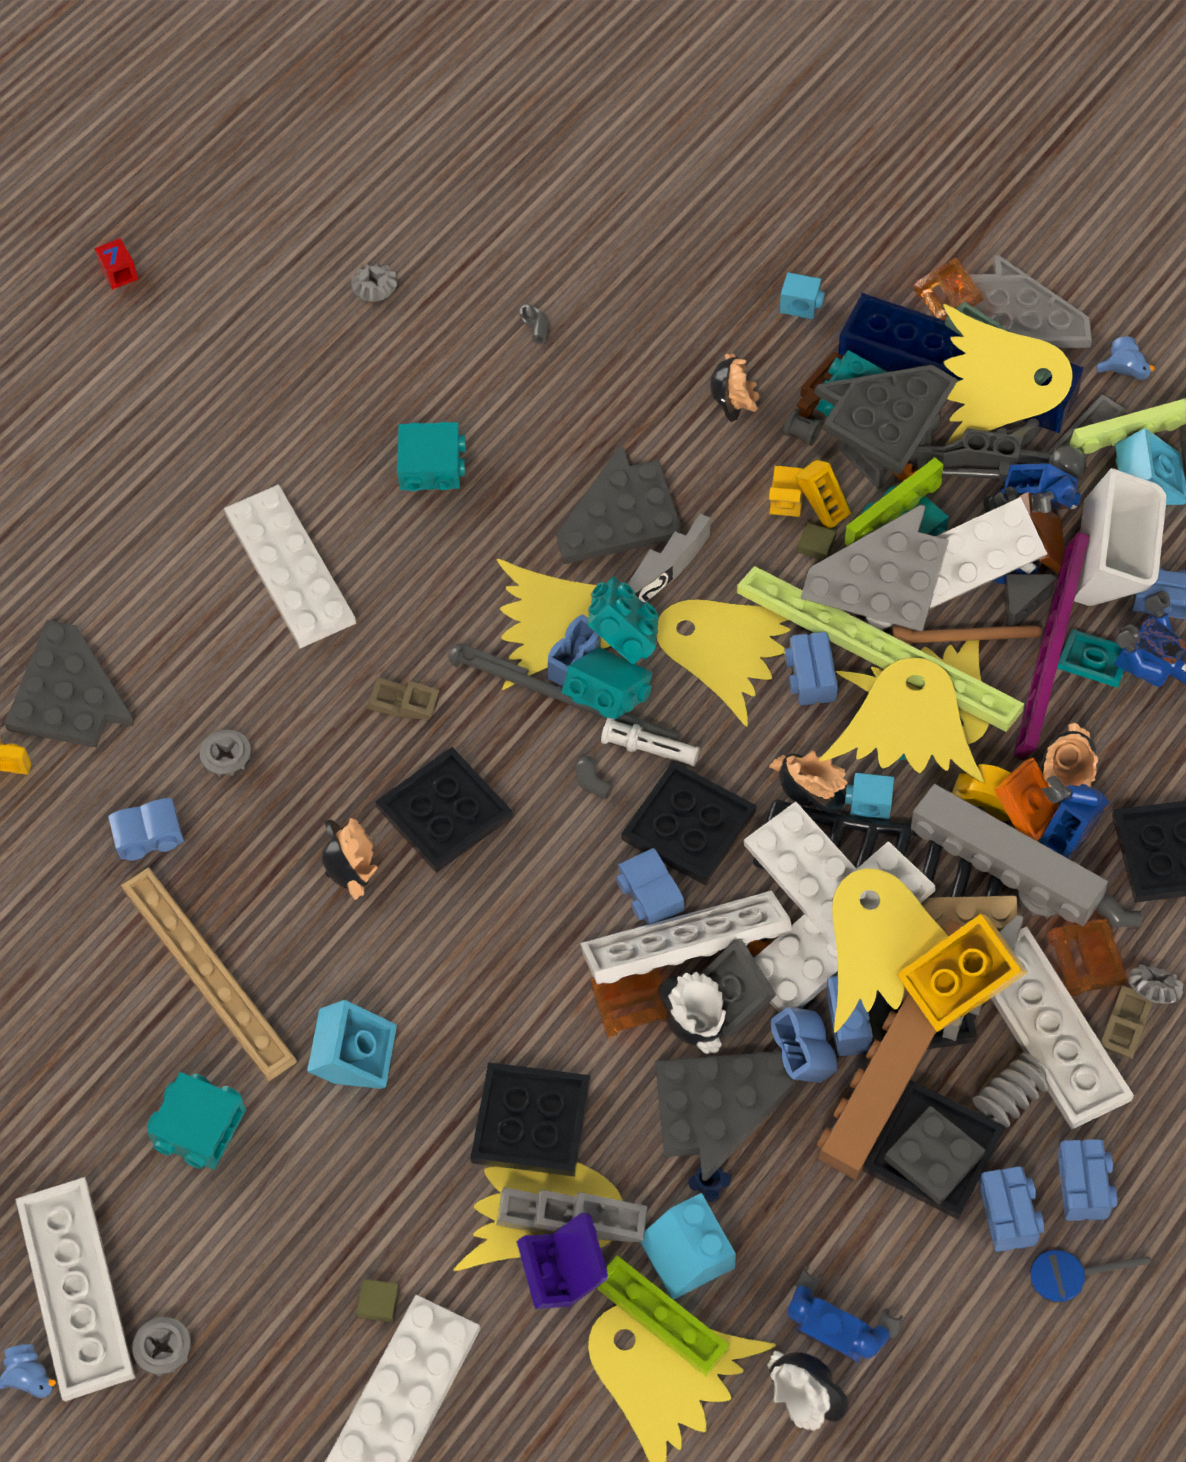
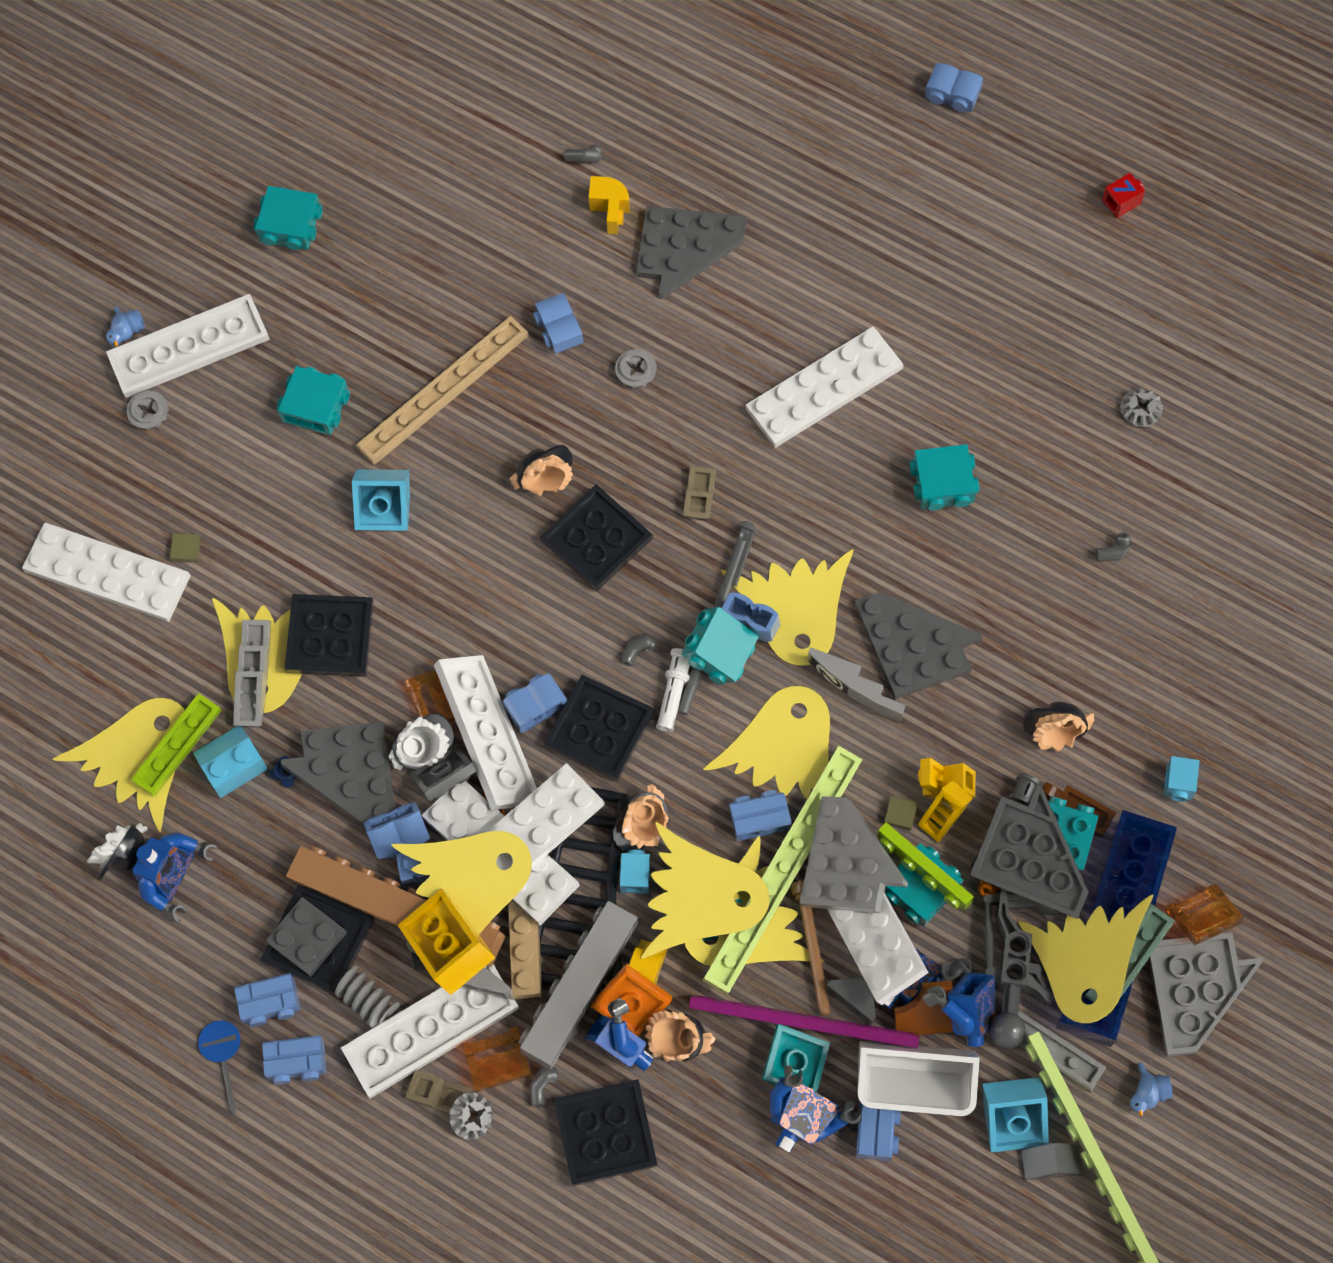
camera: 85 degrees right, 10 degrees up
(563, 1264) = (207, 665): dark purple bracket -> none
(623, 620) = (777, 649): teal brick -> none

